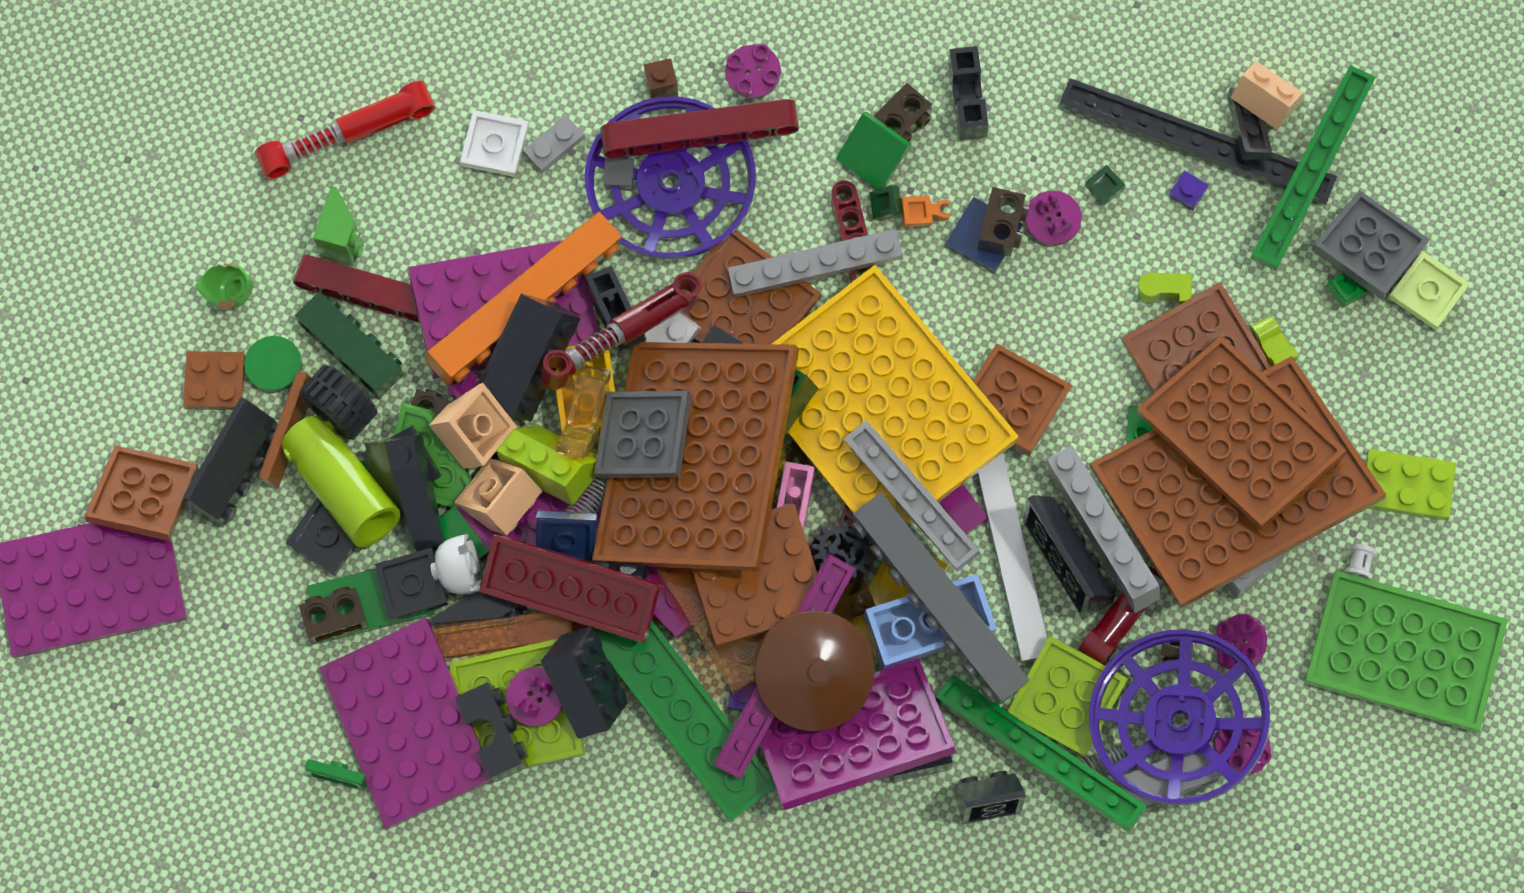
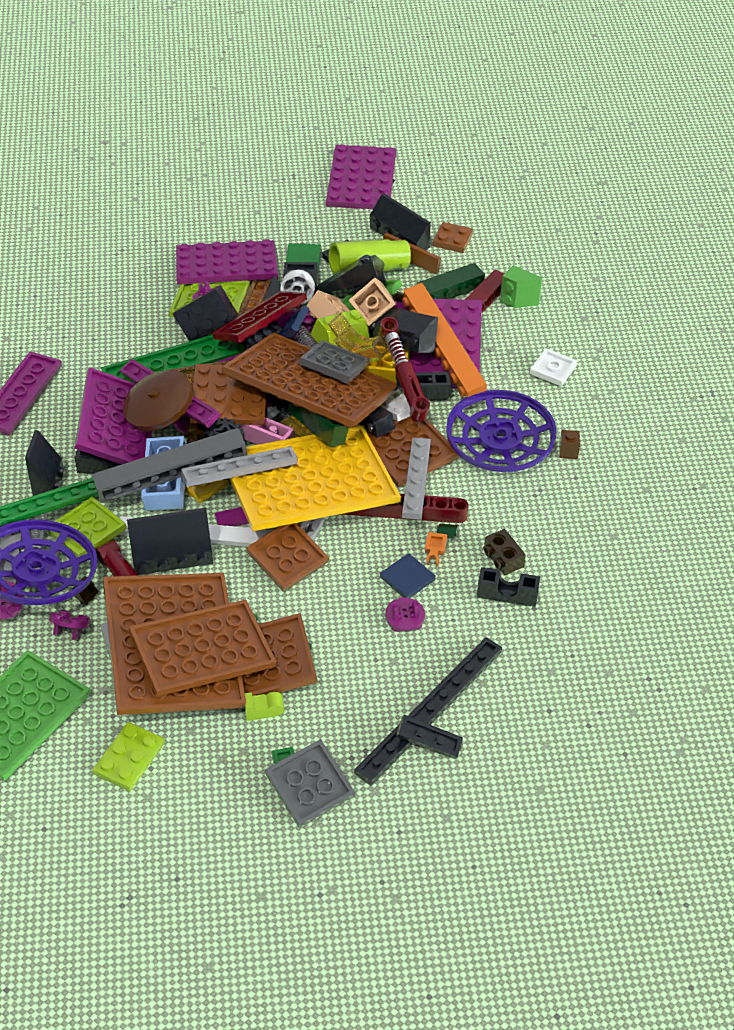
camera: 105 degrees right, 25 degrees down
(141, 493) = (400, 189): dark orange plate -> none
(225, 286) = (503, 244): bright green hair -> none
(272, 363) = (453, 258): green tile -> none
(334, 623) = (297, 244): dark brown brick -> none
(336, 773) = (214, 232): green plate -> none
(338, 401) = (415, 264): black tyre -> none
(410, 102) = (591, 336): red piece -> none
(505, 754) = (188, 283): black arch -> none
(554, 144) = (545, 394): light grey plate -> none
(618, 173) = (515, 413): dark grey tile -> none
(699, 128) = (525, 443): dark red beam -> none
(748, 59) = (560, 484): magenta plate -> none
(873, 151) = (484, 528): green tile -> none
(997, 220) = (409, 577): dark brown brick -> none
(1103, 529) = (178, 562): light grey brick -> none
(1105, 185) = (417, 647): dark green plate -> none
(1165, 287) = (329, 659): lime leg -> none
(1188, 190) = (396, 695): dark purple plate -> none
(1267, 95) = (450, 756): light nougat slope -> none
(1312, 167) = (382, 763): green plate -> none
(1361, 560) = (88, 707): white bush -> none
(1429, 290) = (261, 813): yellowish green plate -> none

